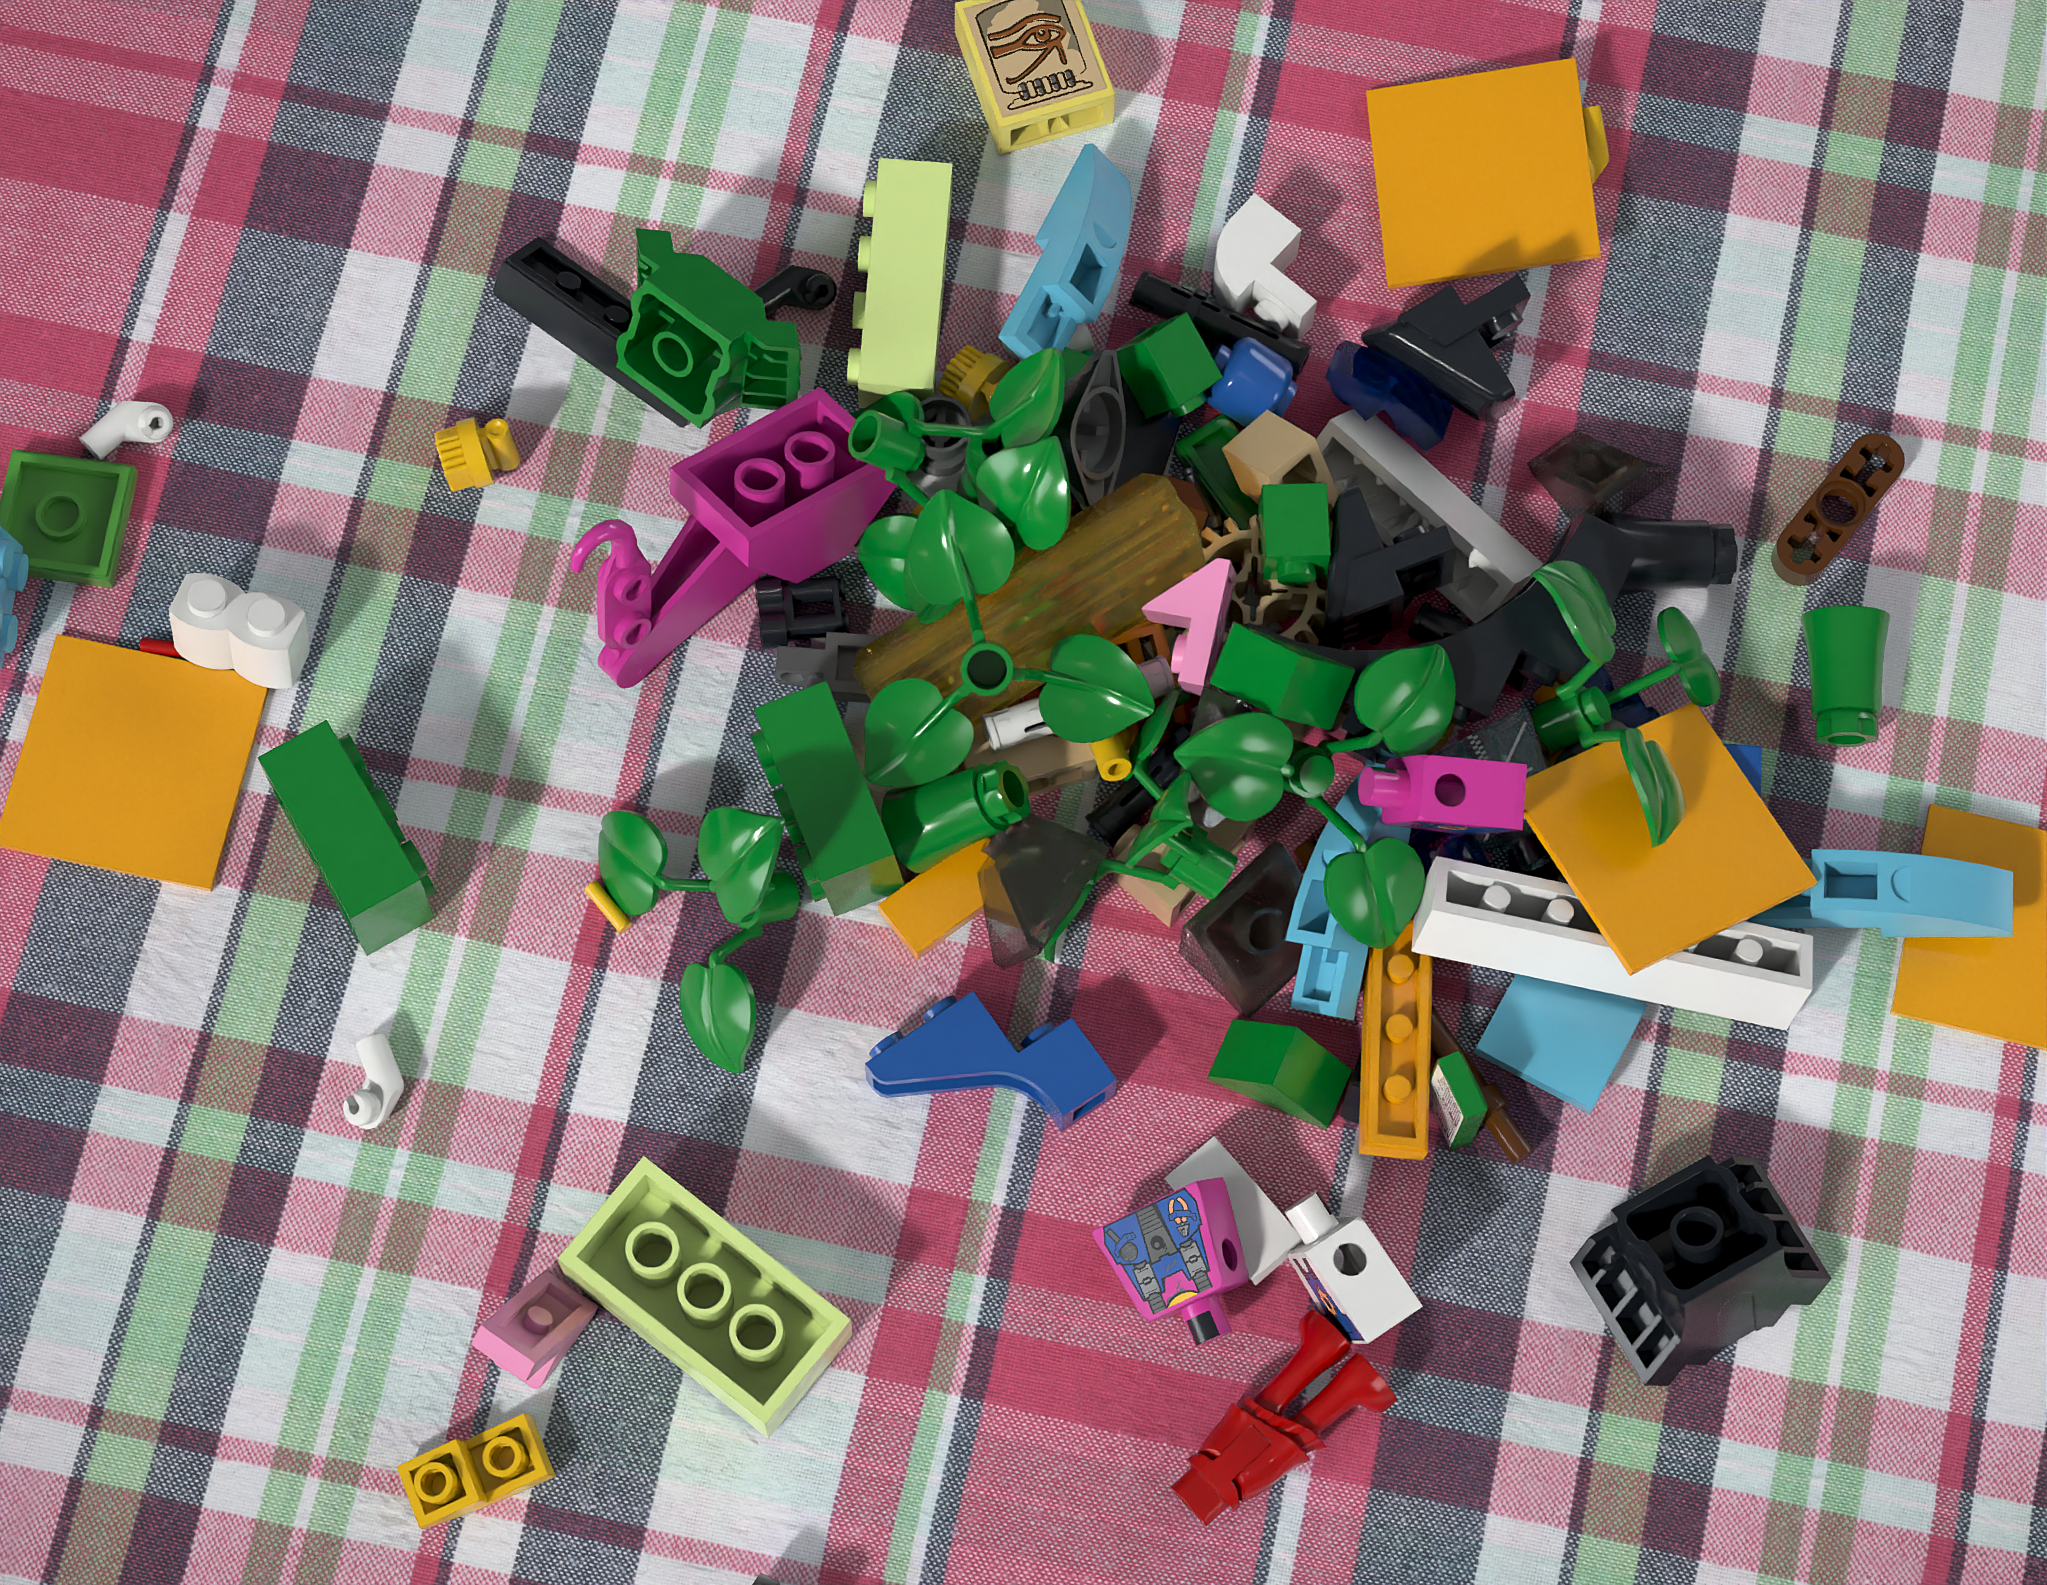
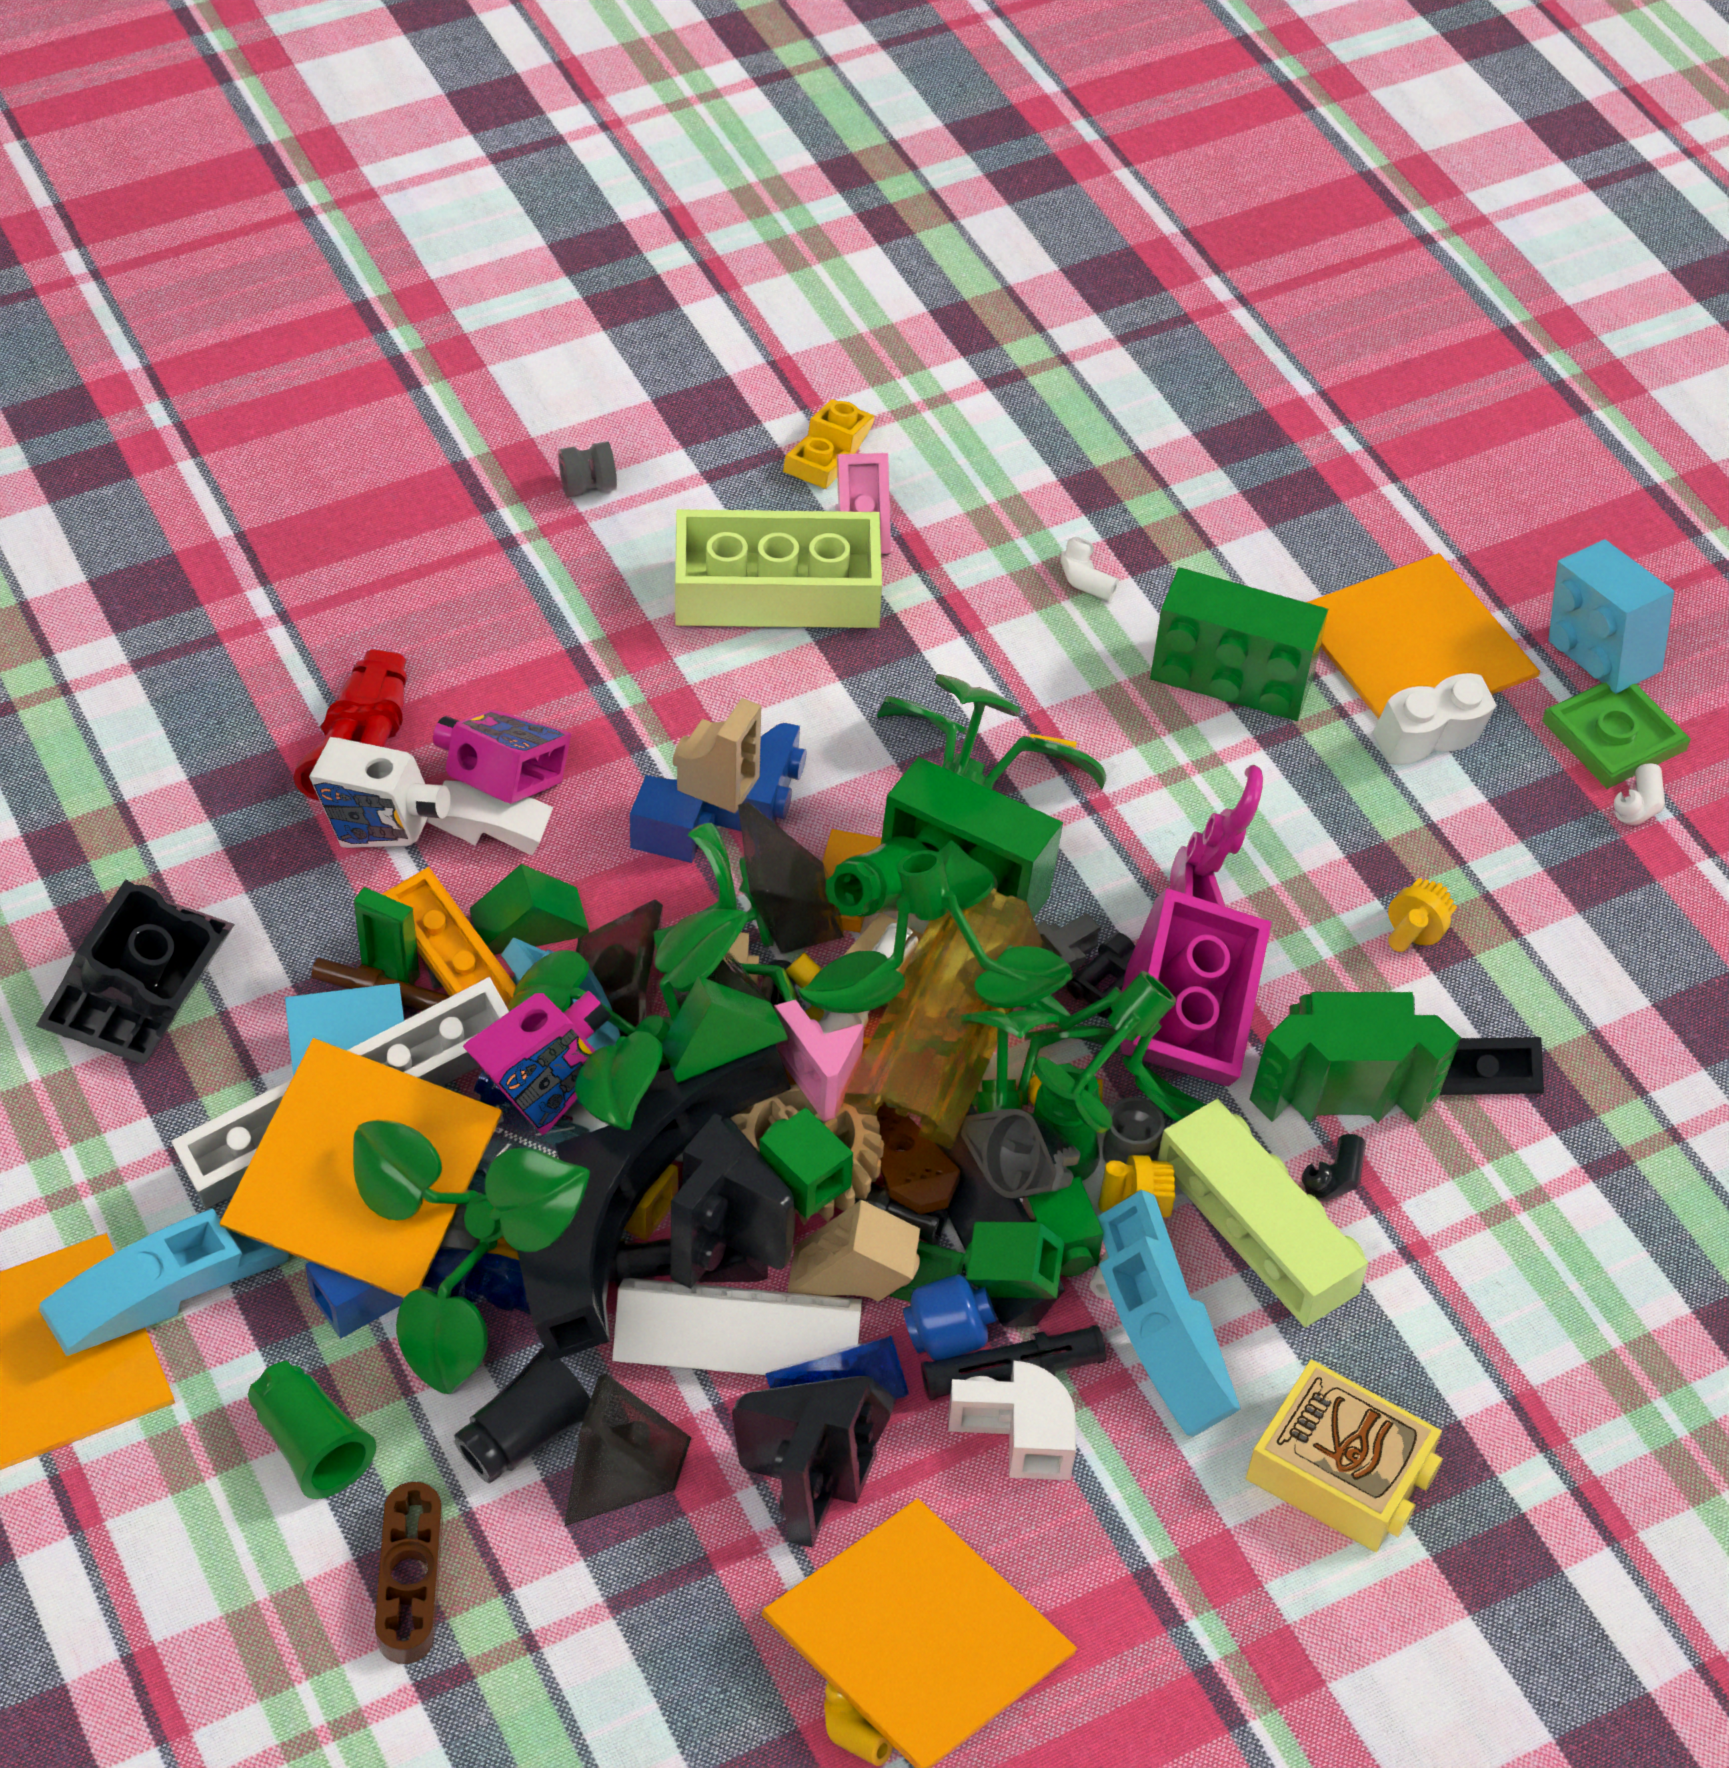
camera: 140 degrees right, 20 degrees down
(1002, 1036) = (721, 758): none -> tan arch

